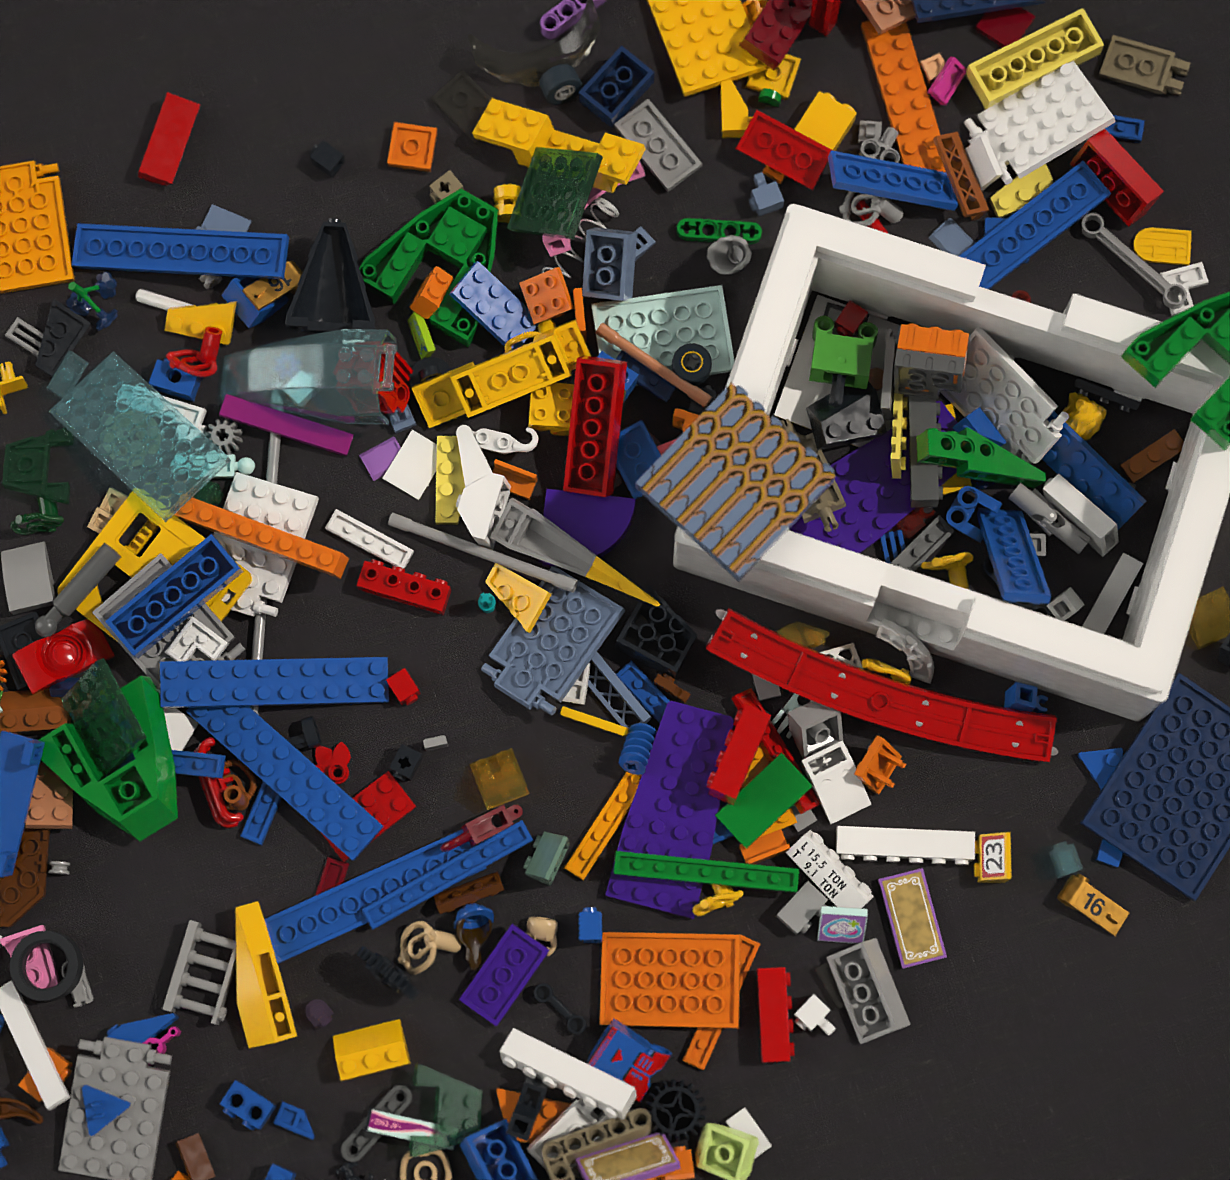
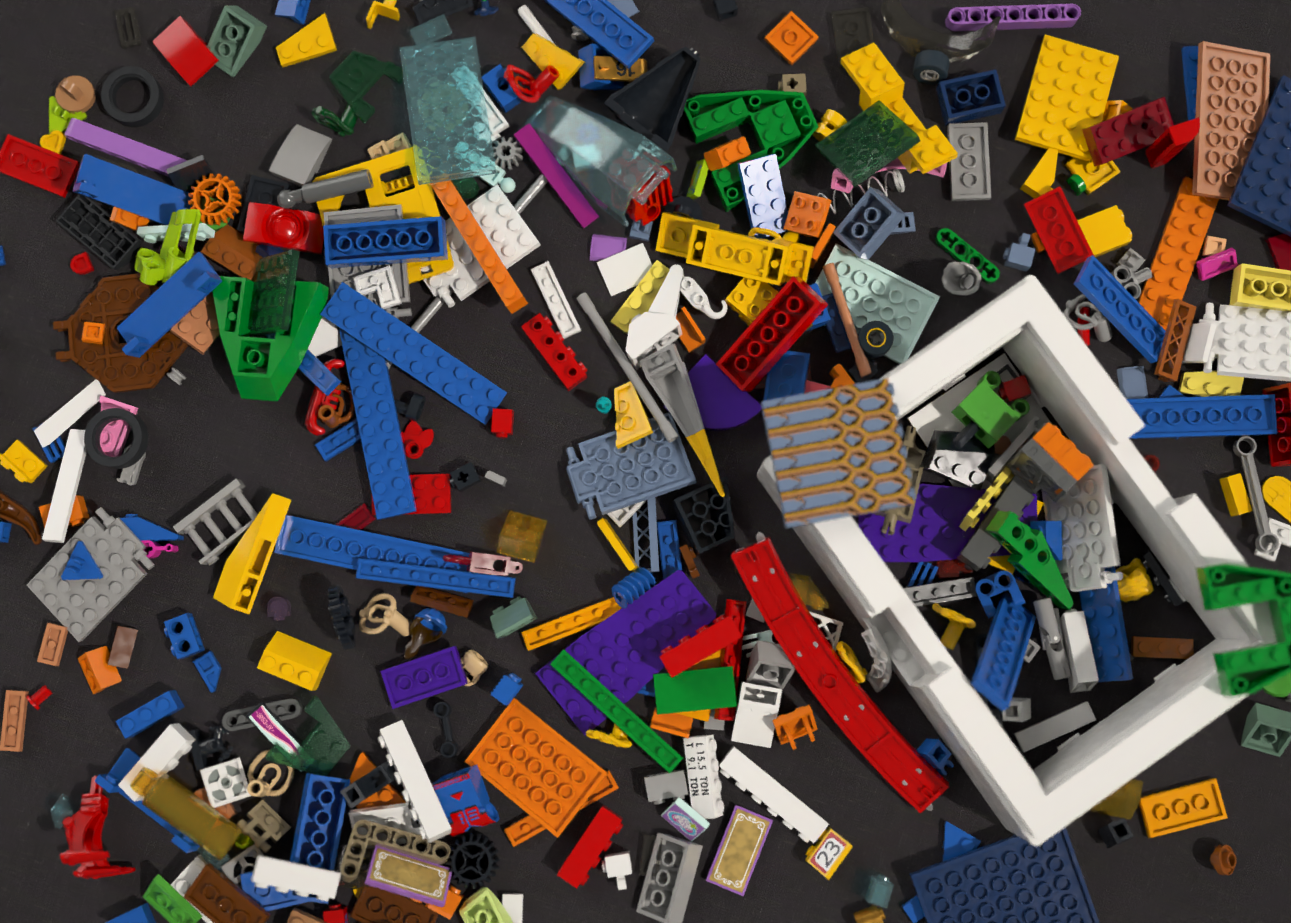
camera: 40 degrees right, 5 degrees up
(1116, 274) = (1235, 495): none -> yellow panel

